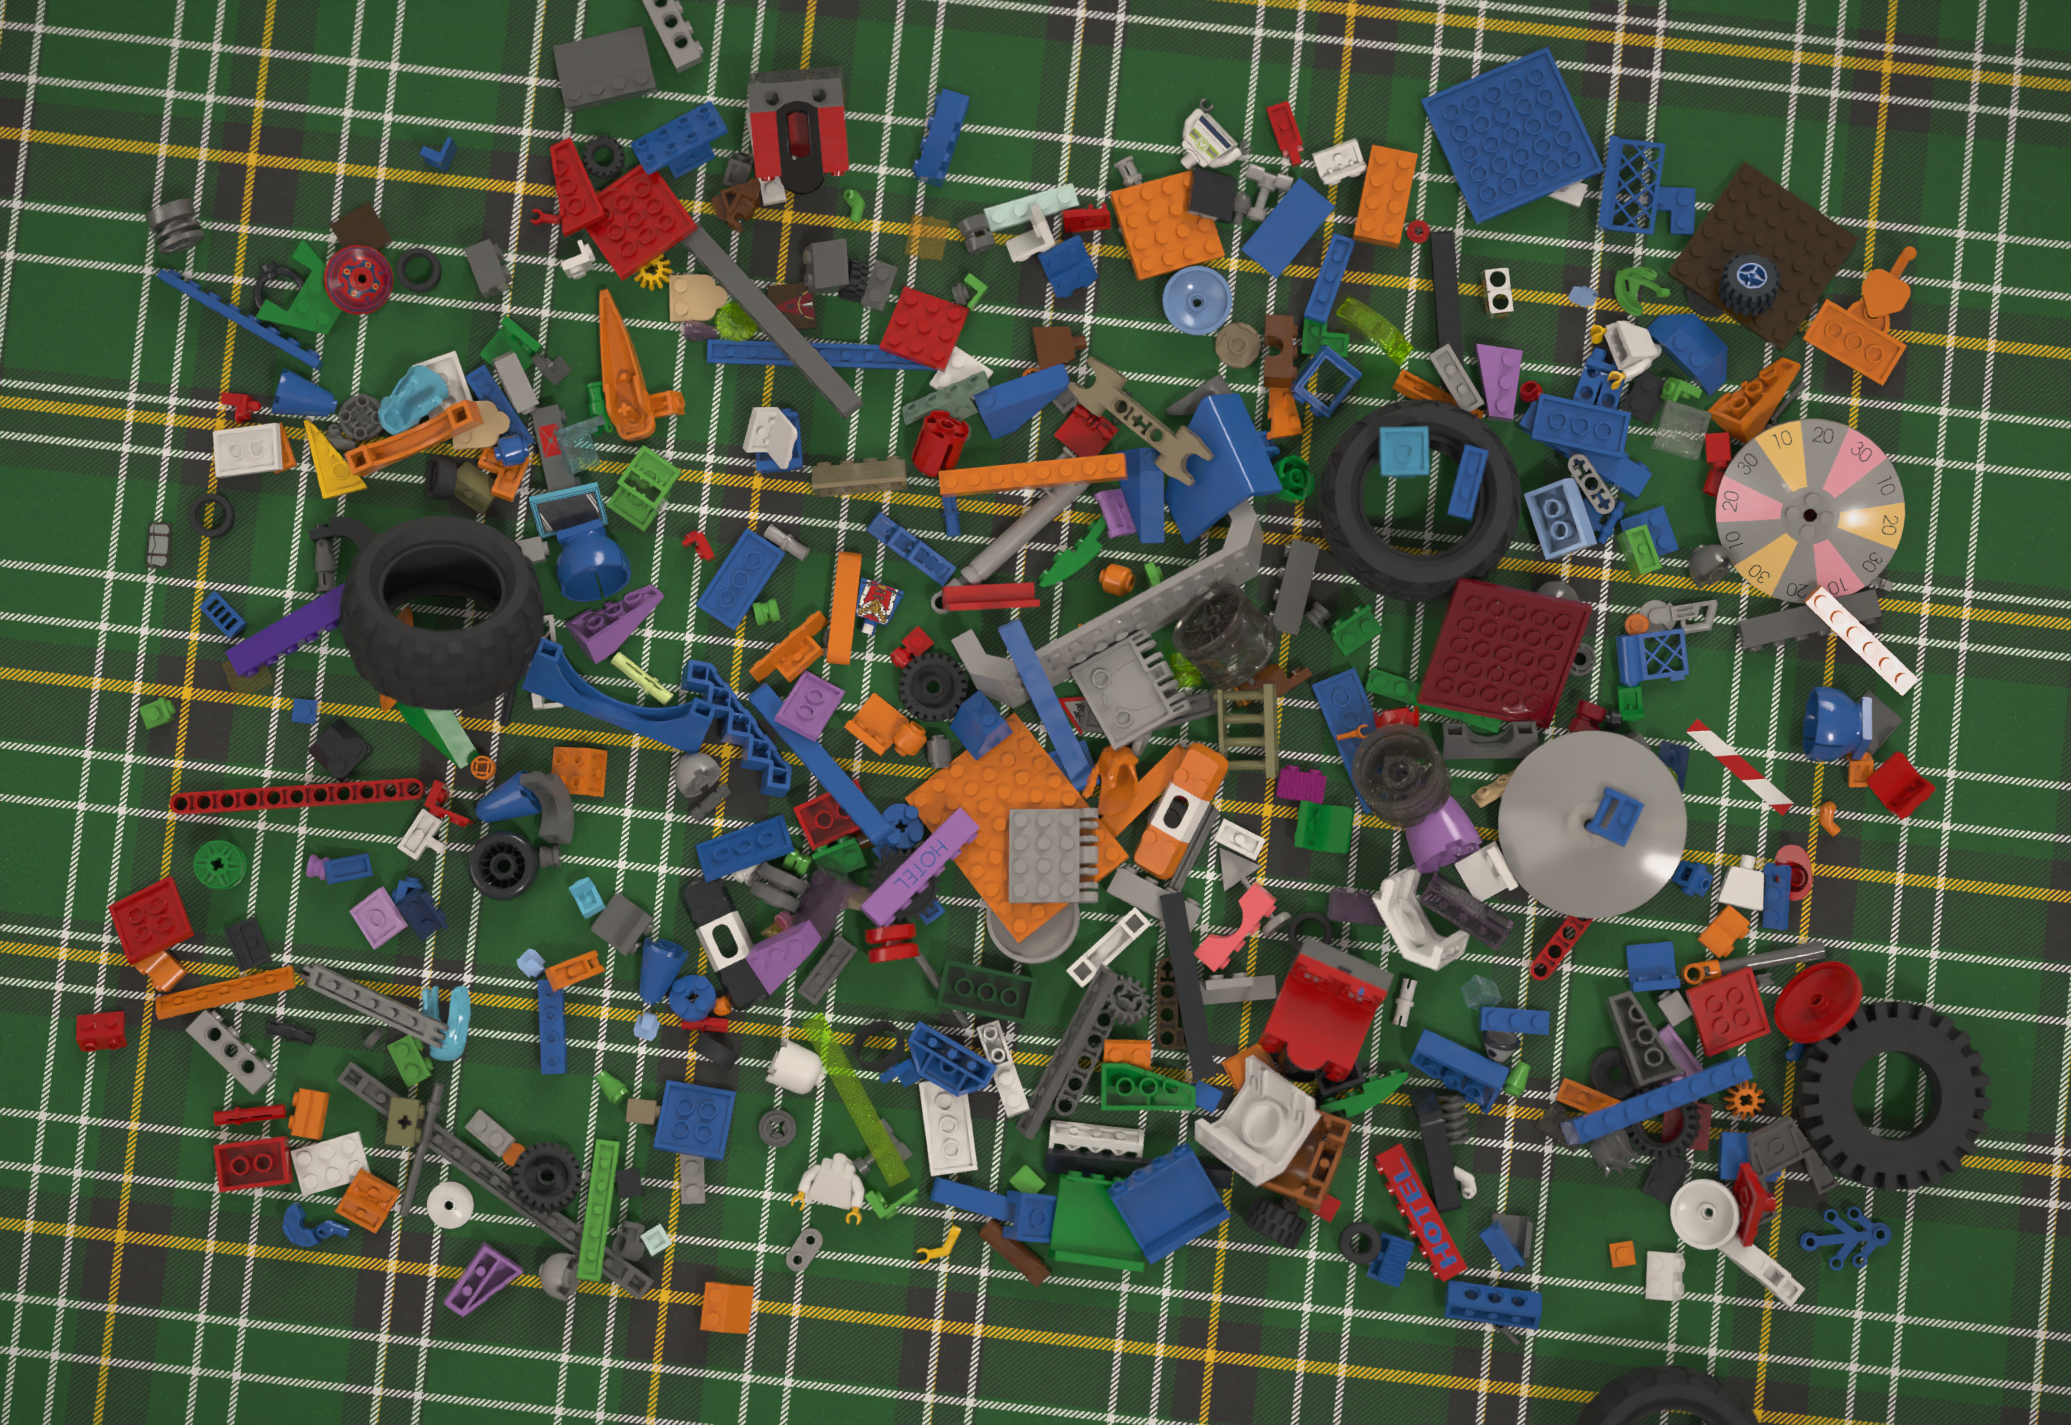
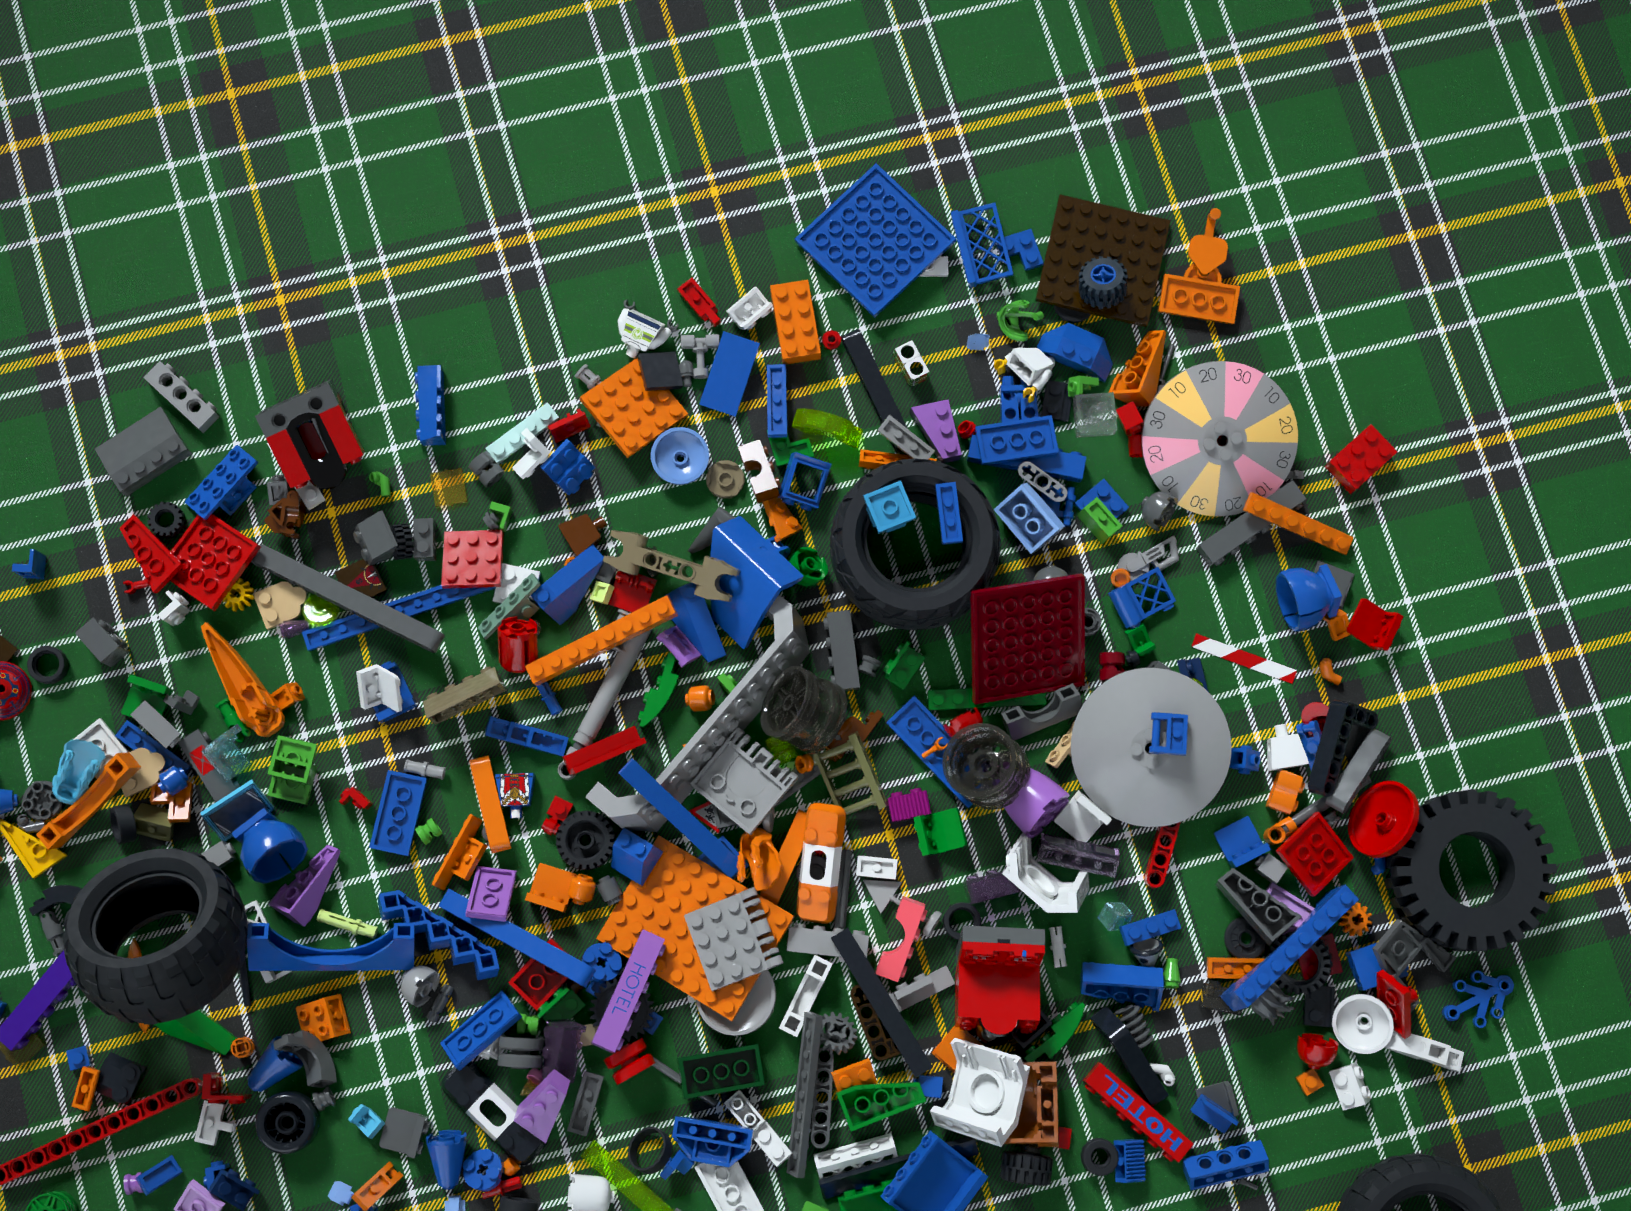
camera: 30 degrees left, 5 degrees down
(302, 747) = (86, 1088): none -> orange slope
(1052, 421) = (602, 592): none -> yellowish green plate
(1203, 695) = (804, 763): none -> orange bush
(1642, 1223) = (1316, 1051): none -> red cylinder
(1798, 897) = (1334, 743): none -> black beam
(1814, 939) = (1358, 770): none -> beam
(1963, 594) = (1360, 459): none -> red brick

